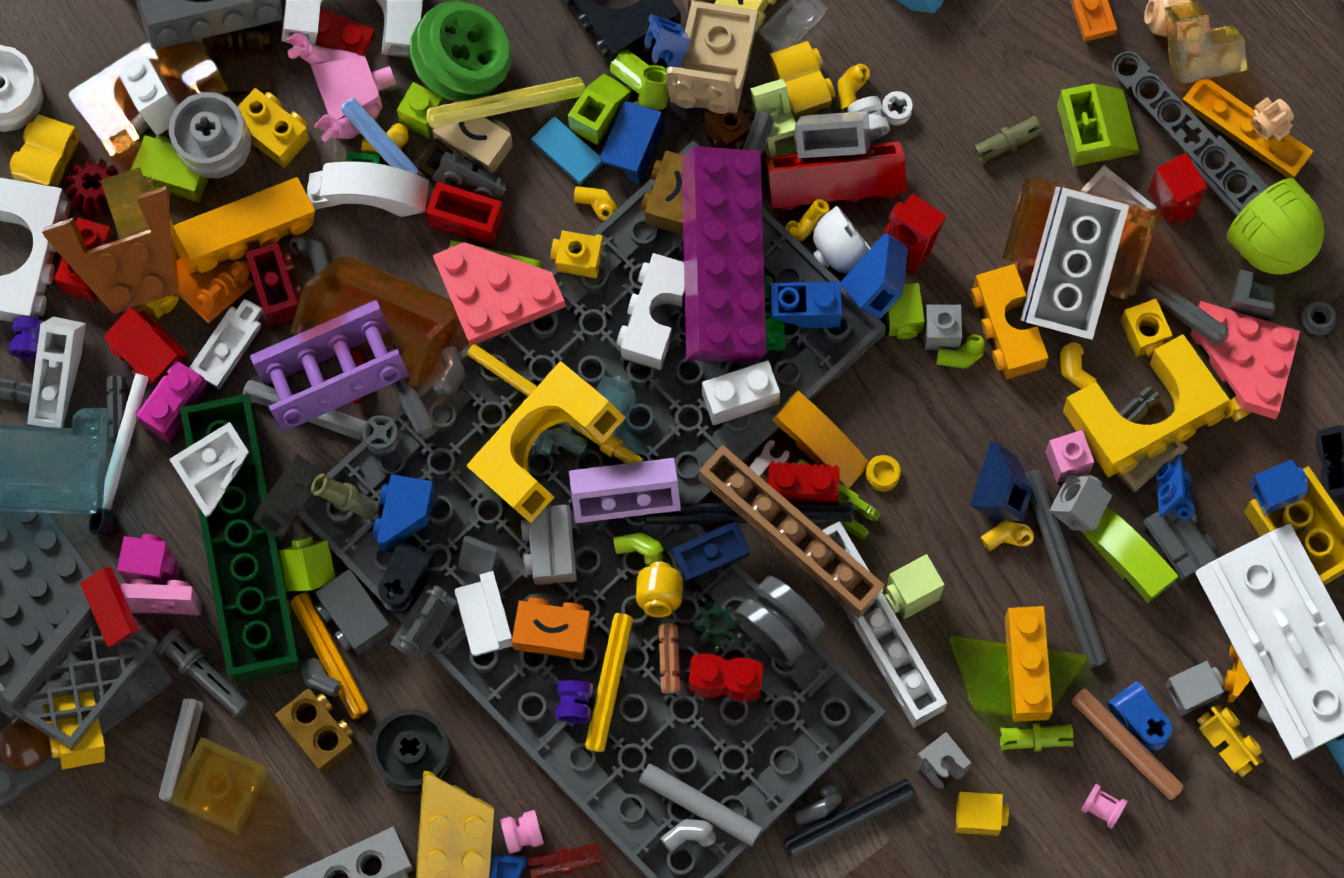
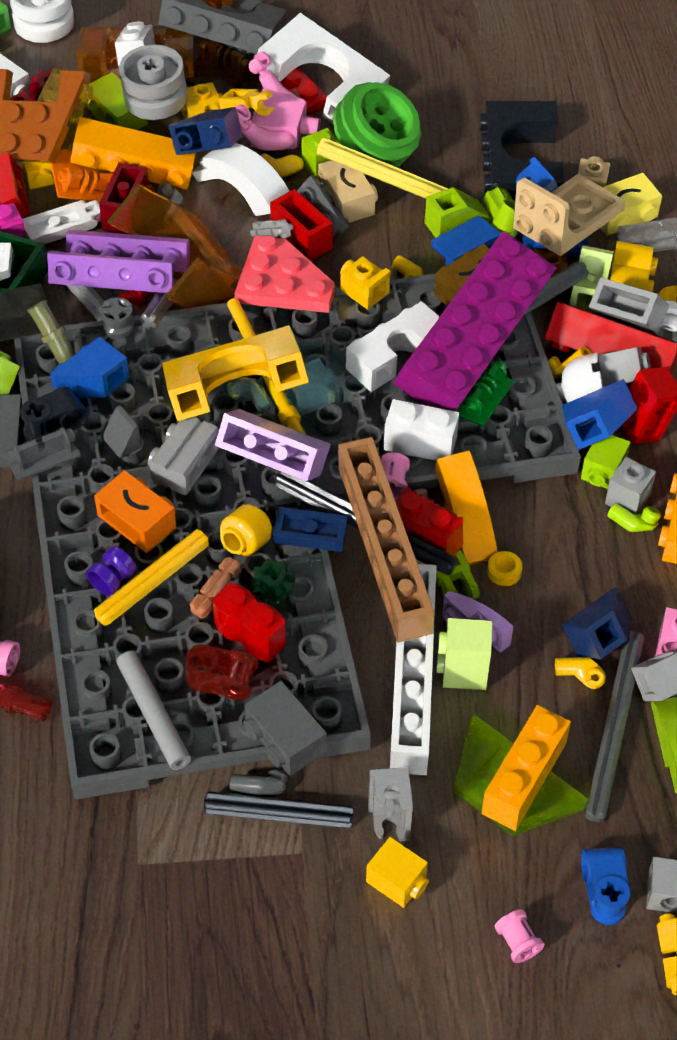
camera: 30 degrees right, 20 degrees down
(45, 152) = (40, 53): yellow brick -> none
(307, 97) = (248, 97): none -> yellow plate
(309, 166) = (206, 131): none -> dark blue slope
(376, 136) = (274, 144): light blue axle -> none
(440, 235) = (272, 228): none -> light grey axle
(452, 375) = (204, 309): dark grey arm -> none
(483, 615) = (92, 473): white panel -> none
(566, 151) = (412, 233): dark azure tile -> none
(641, 543) = (255, 492): lime arm -> none
(689, 830) = (124, 722): light grey arm -> none
(736, 736) = (222, 671): none -> clear red piece
(744, 440) = (396, 473): none -> bright pink bush
(779, 620) = (326, 599): dark grey wheel -> none
(807, 304) = (523, 399): blue slope -> none
(820, 756) = (284, 728): none -> dark grey brick
(865, 203) = (622, 365): none -> light grey brick
(883, 543) = (463, 607): none -> lavender slope
(1036, 737) = (495, 842): lime pin -> none
(1128, 744) = (578, 901): nougat axle -> none

